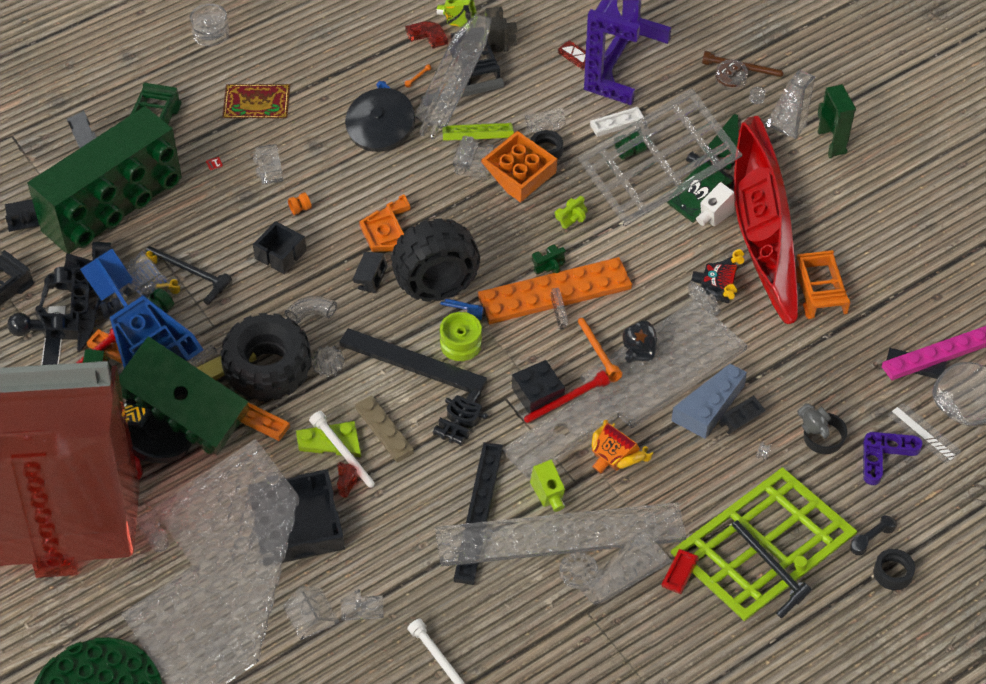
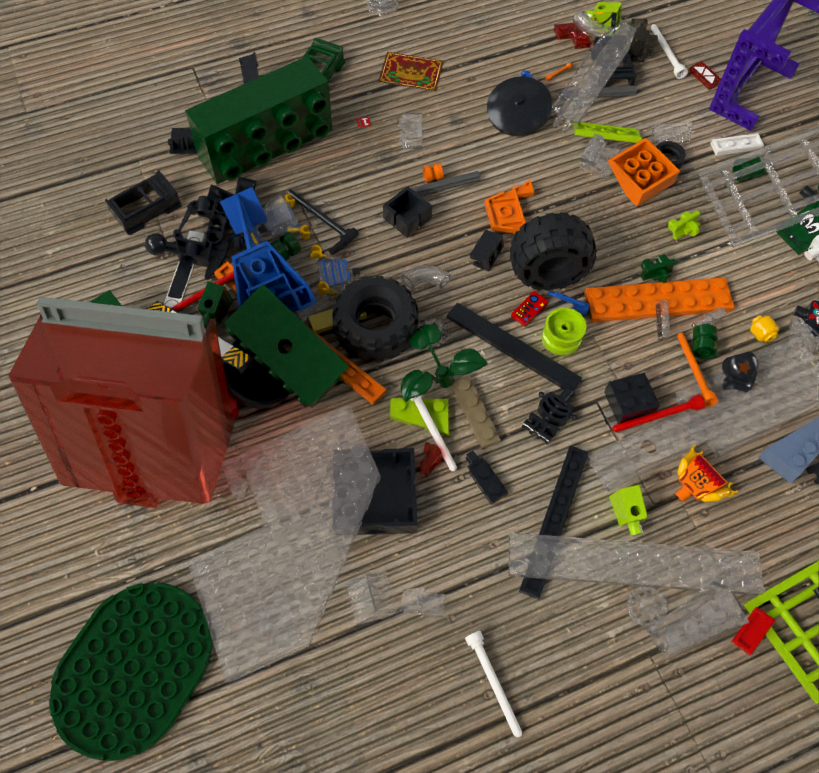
camera: 10 degrees right, 10 degrees up
(212, 321) = (333, 273): none -> torso
(317, 212) = (447, 183): none -> dark grey axle
(320, 406) = (418, 383): none -> dark green plant
(404, 487) = (485, 478): none -> black hinge
(423, 321) = (529, 308): none -> red tile
(442, 22) = (589, 26): none -> clear cylinder
(546, 53) = (679, 70): none -> white piece
(604, 321) = (705, 341): none -> dark green wheel
(607, 300) = (710, 318): none -> clear axle
(663, 299) = (764, 328): none -> yellow head

